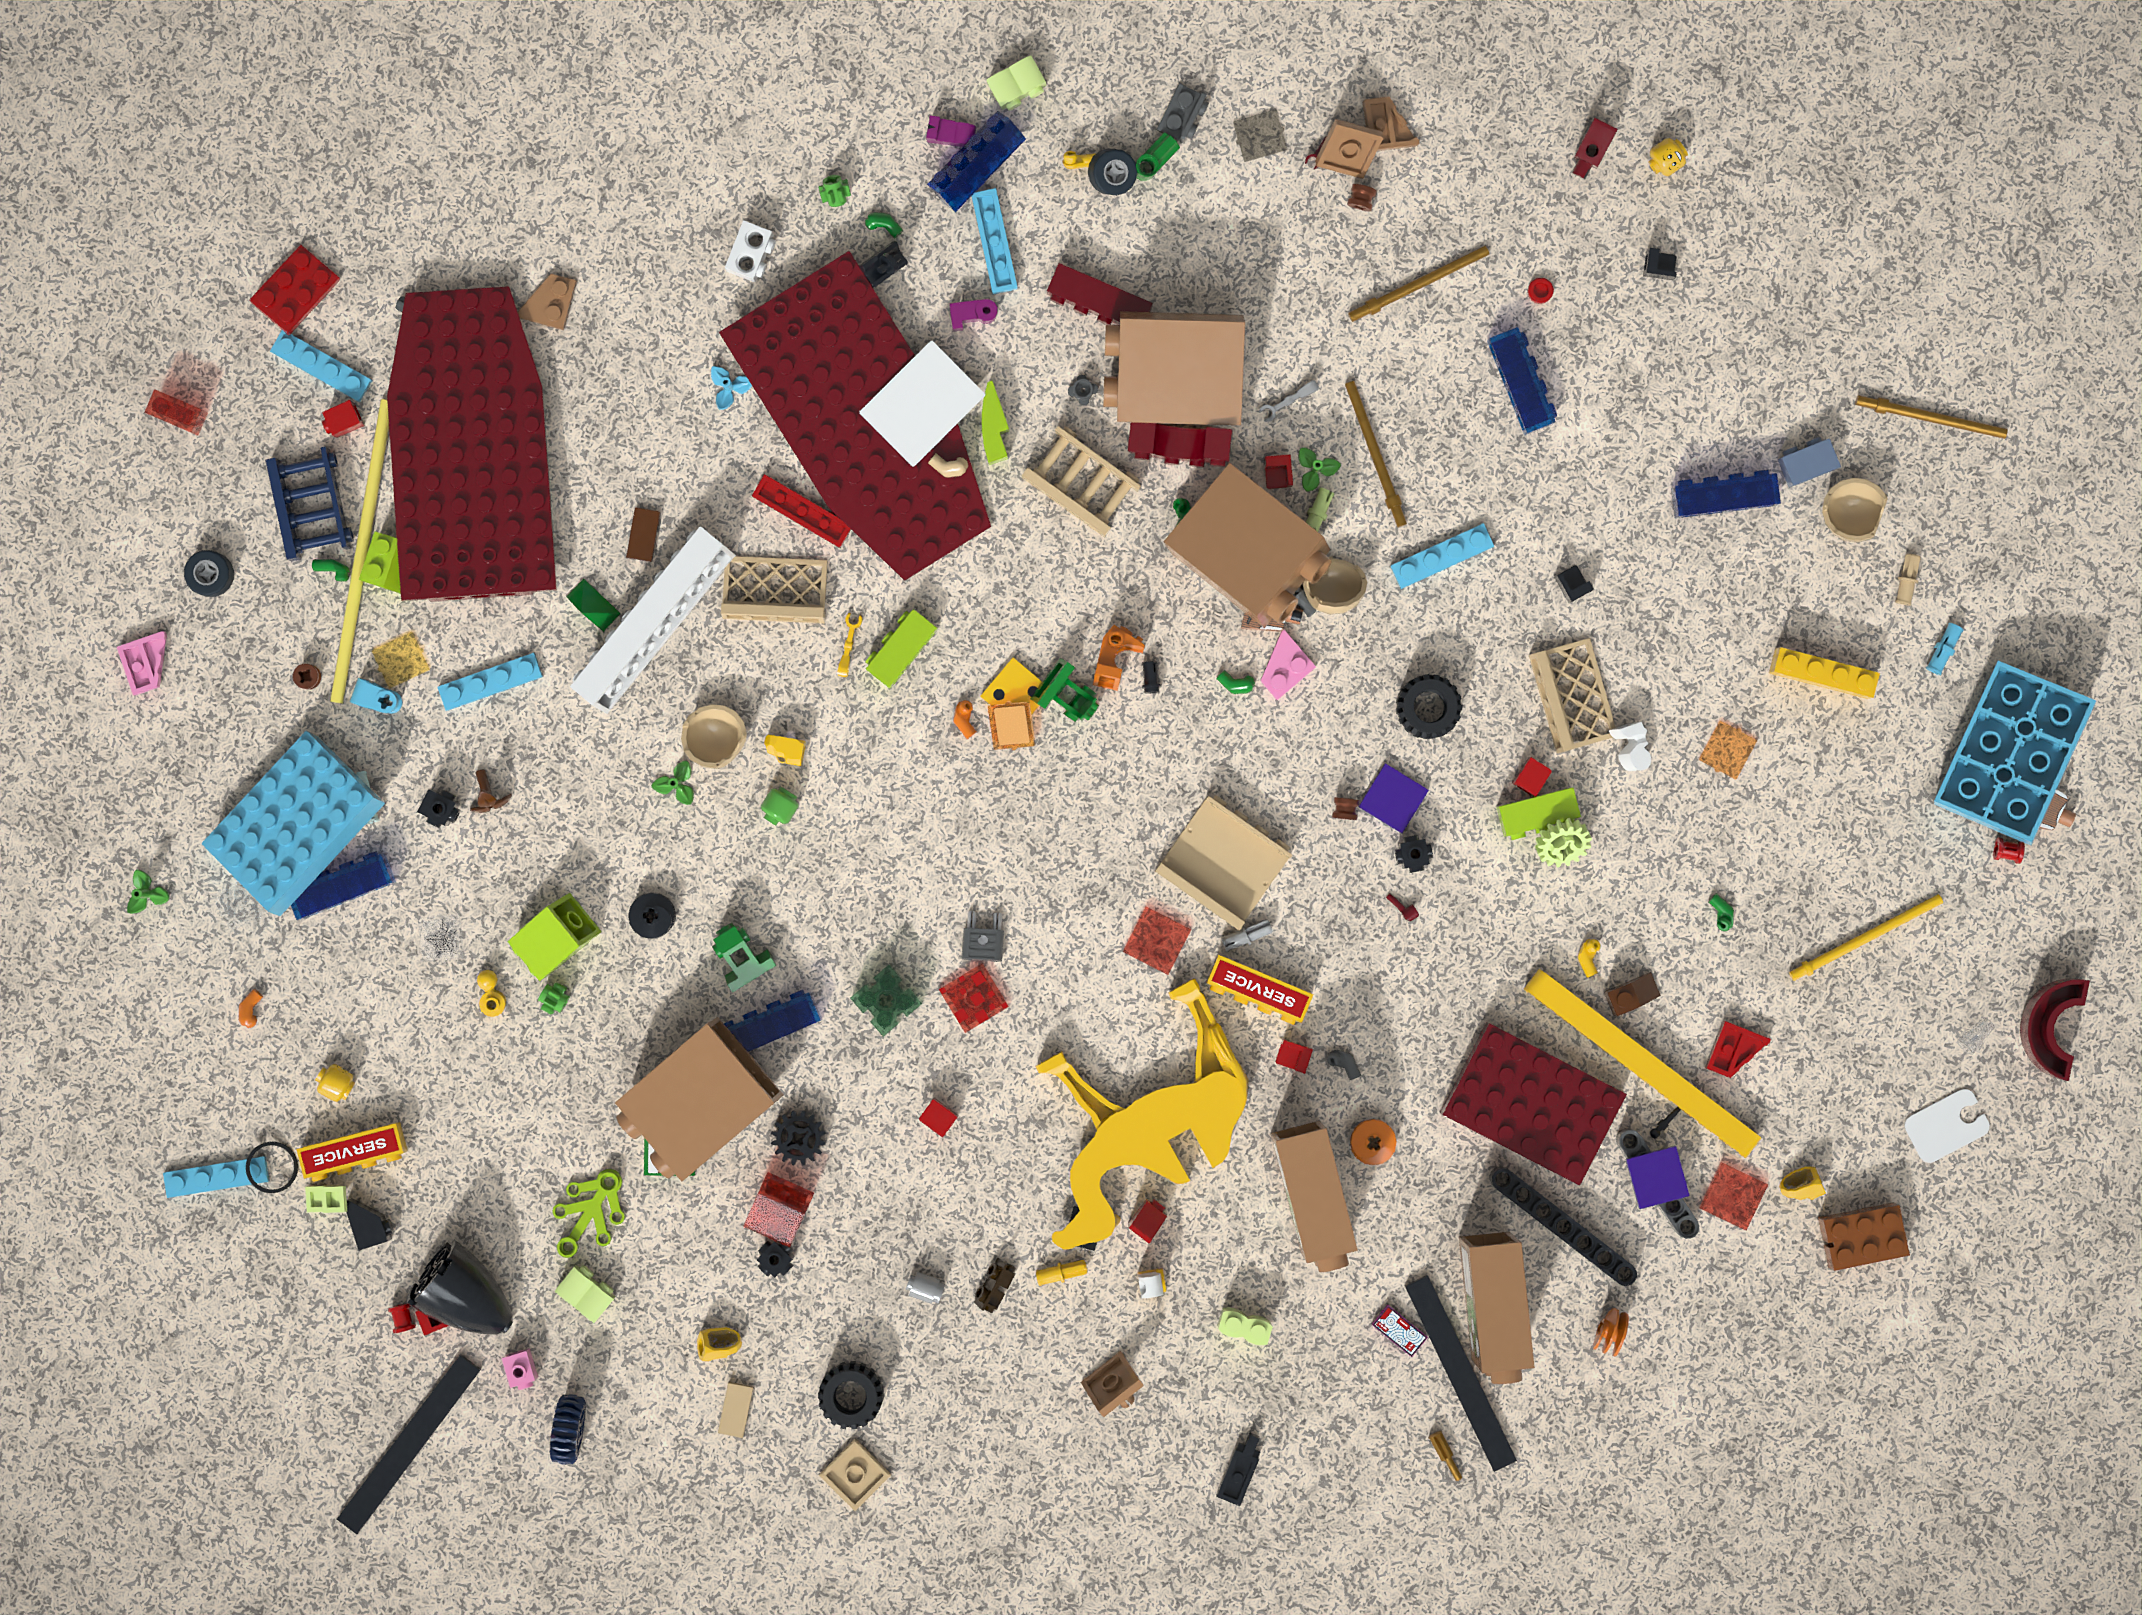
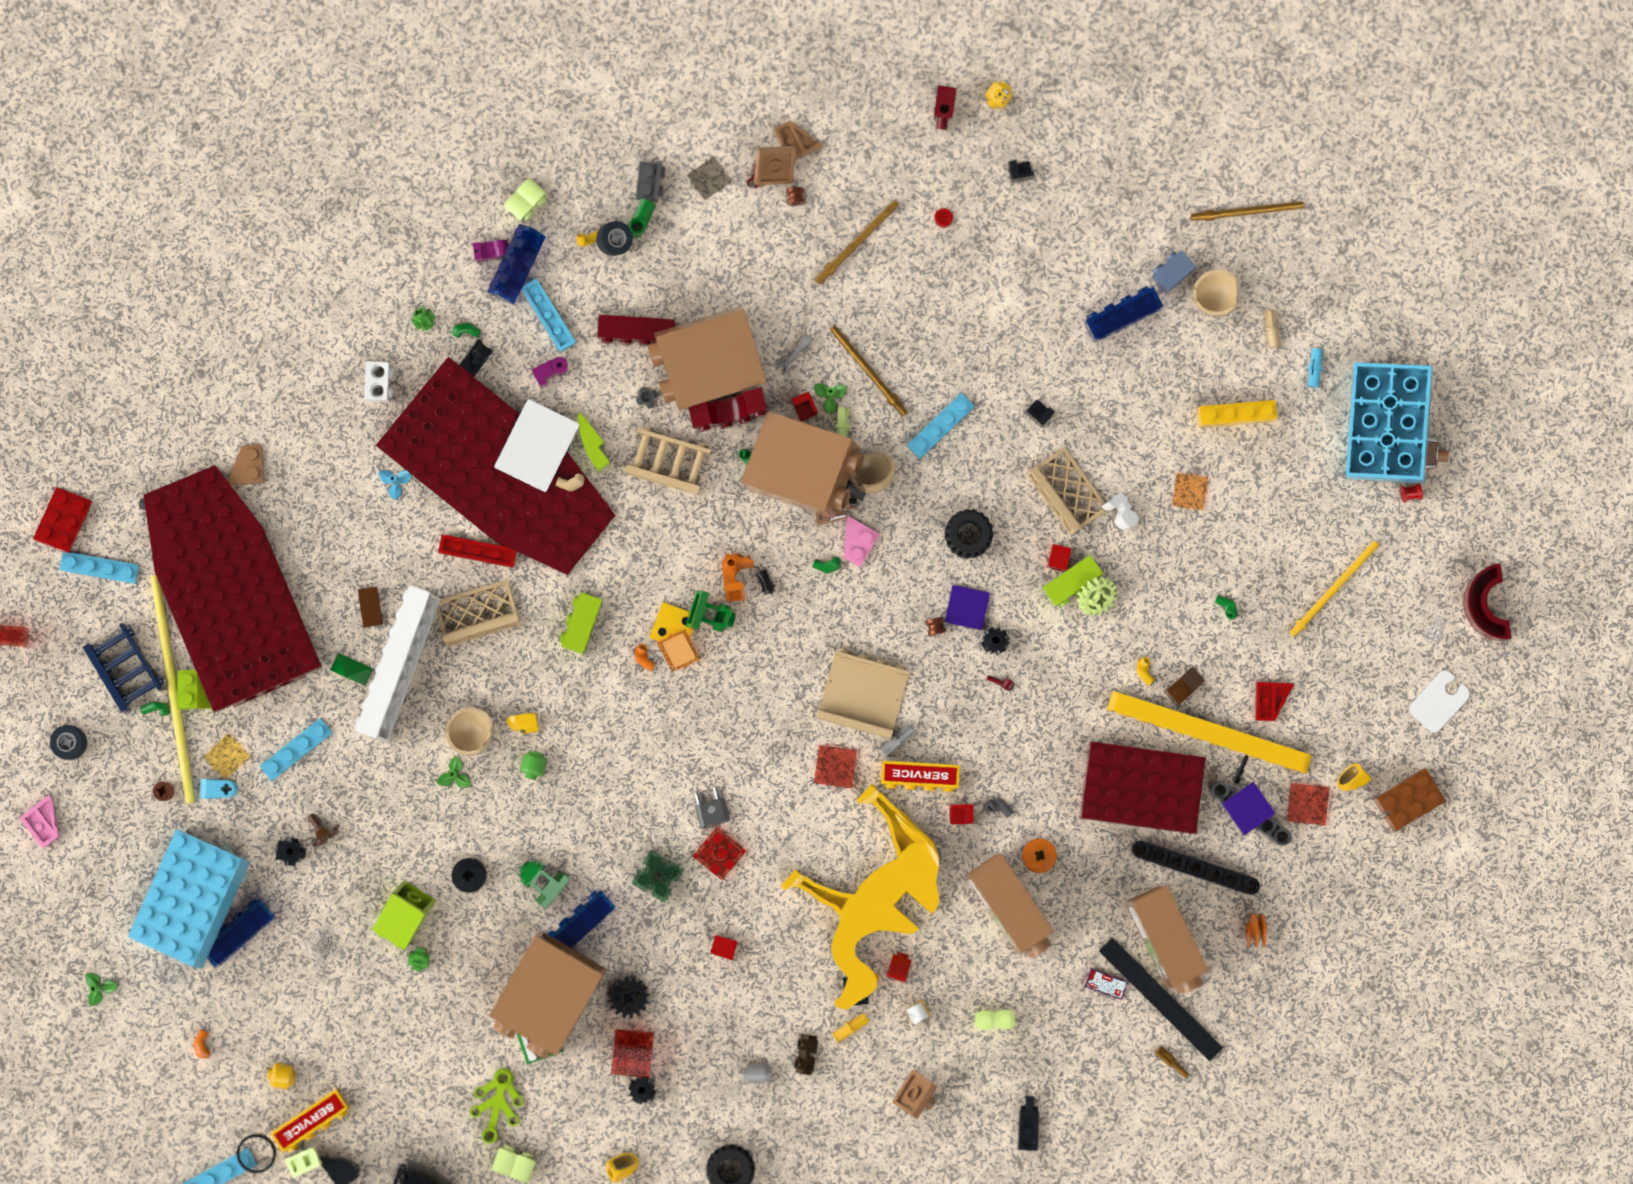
camera: 25 degrees left, 5 degrees down
(342, 419) = (127, 599): red brick -> none
(487, 980) = (366, 964): yellow plate -> none
(844, 664) = (544, 645): yellow piece -> none
(1521, 381) = (952, 284): clear blue brick -> none

